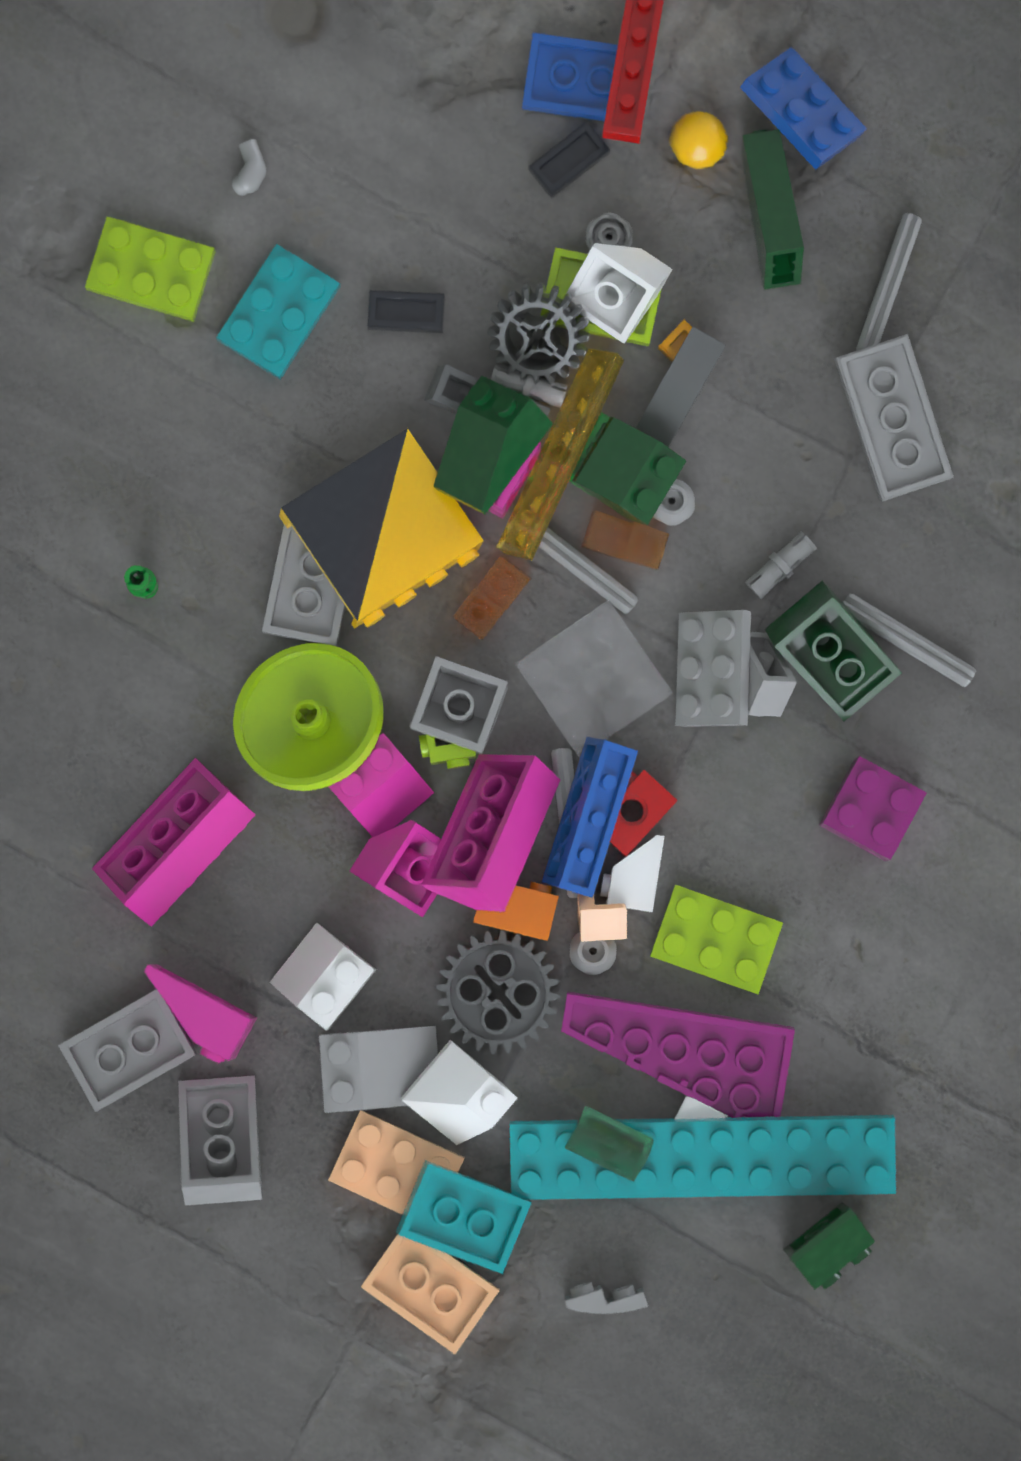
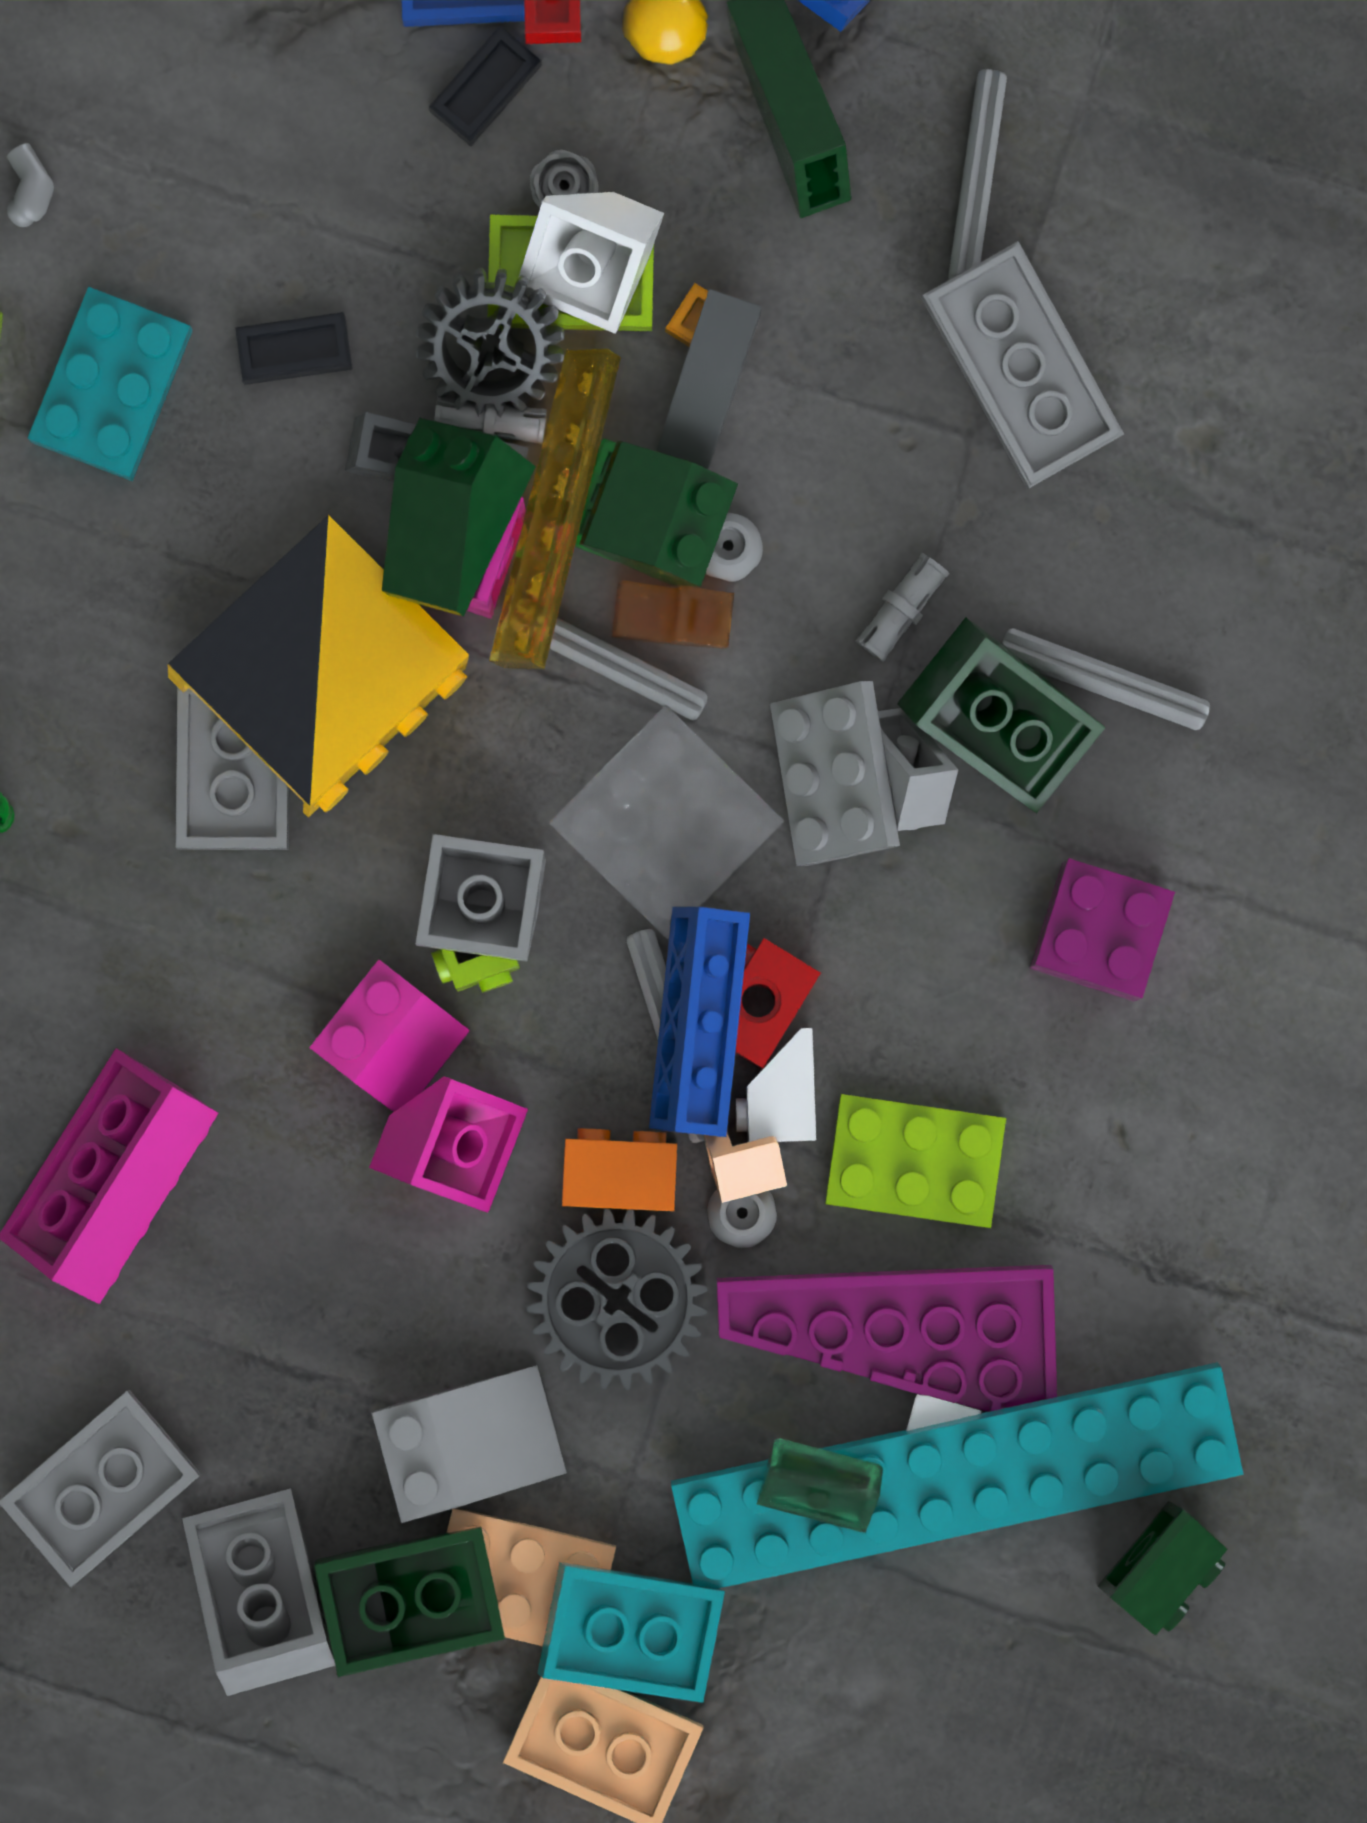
camera: 20 degrees left, 0 degrees up
(206, 1017) = (201, 1418): dark pink slope -> none
(308, 716) = (266, 957): lime dish -> none
(319, 1165) = (408, 1600): none -> dark green slope
(322, 976) = (360, 1327): white slope -> none
(458, 1095) = (589, 1458): white slope -> none
(492, 597) = (497, 734): clear orange slope -> none
(492, 831) = (563, 1069): dark pink slope -> none
(592, 1299) = (838, 1713): light grey slope -> none

